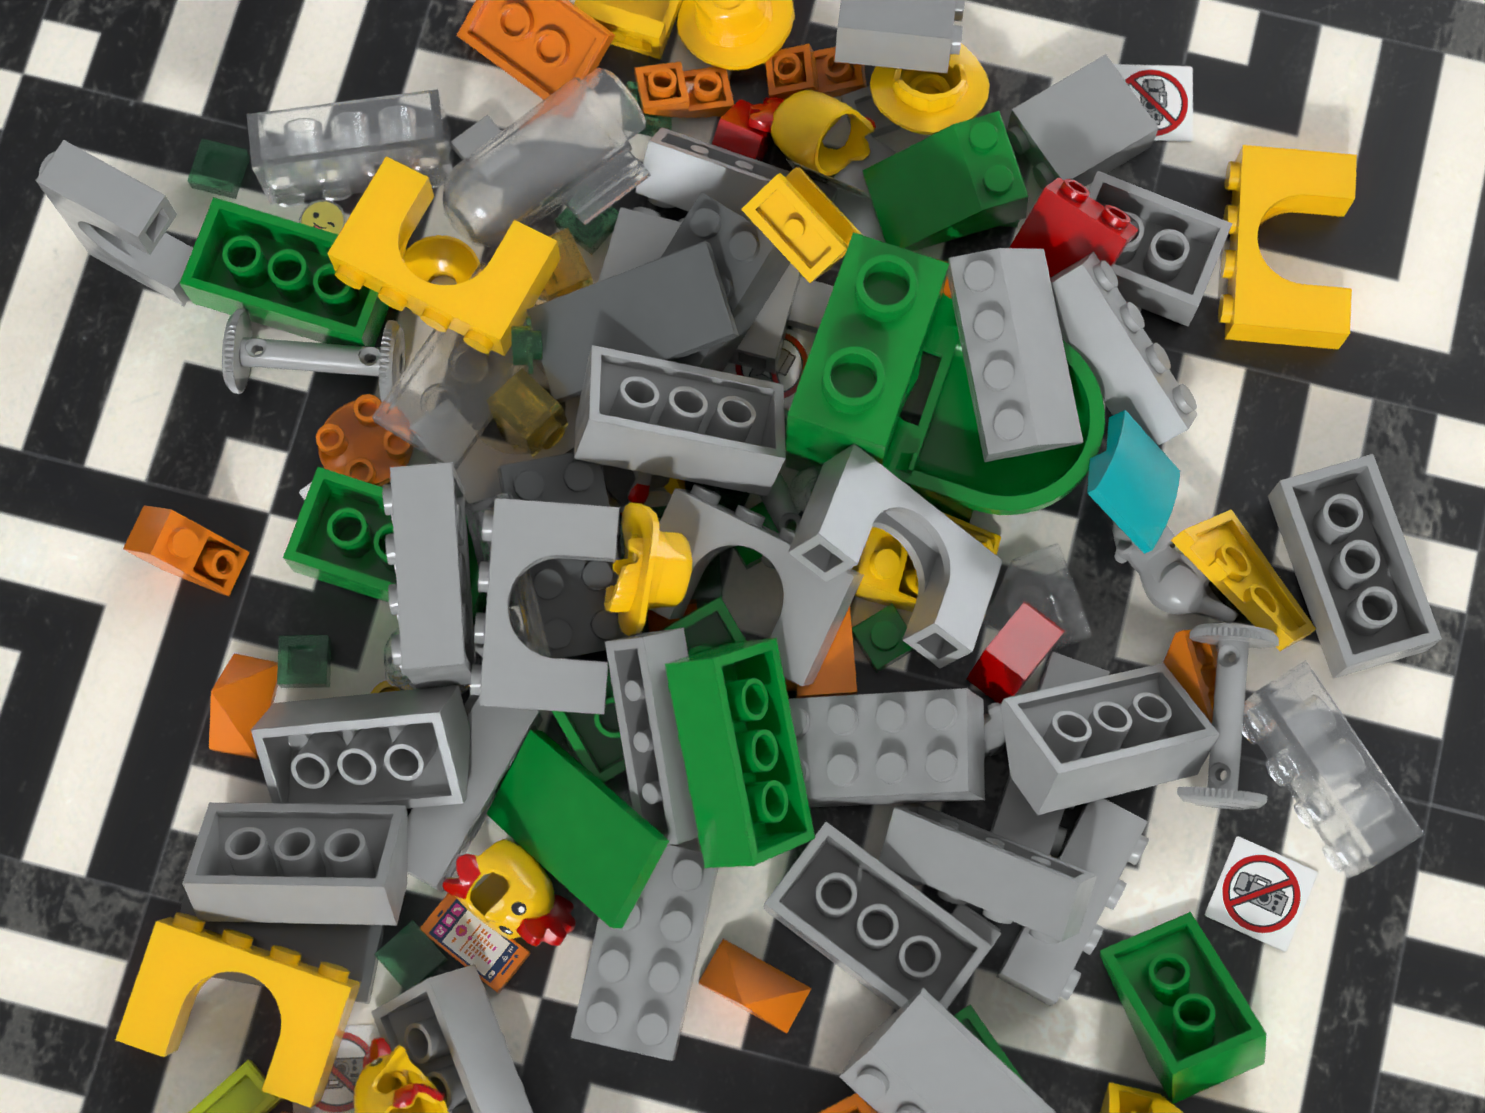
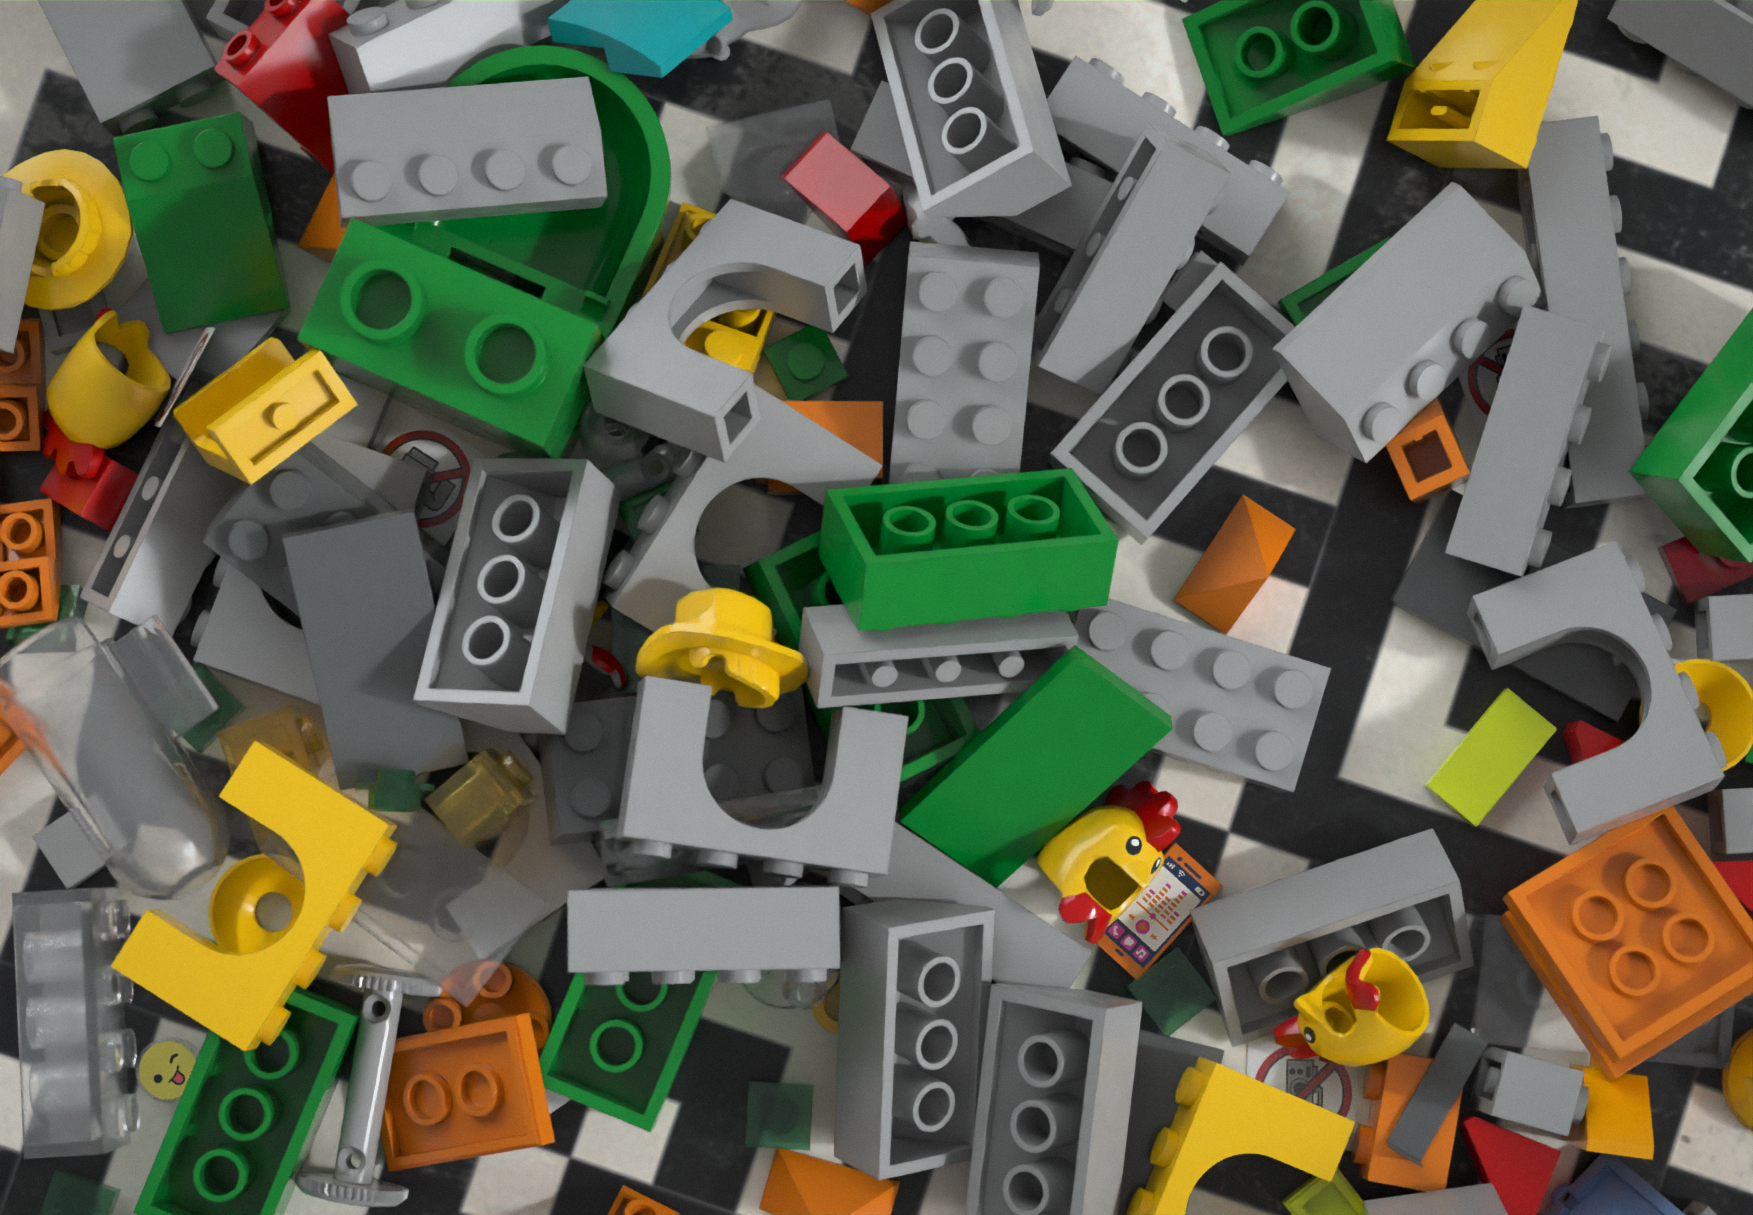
camera: 90 degrees left, 10 degrees up
(309, 424) = (465, 1094): none -> orange tile

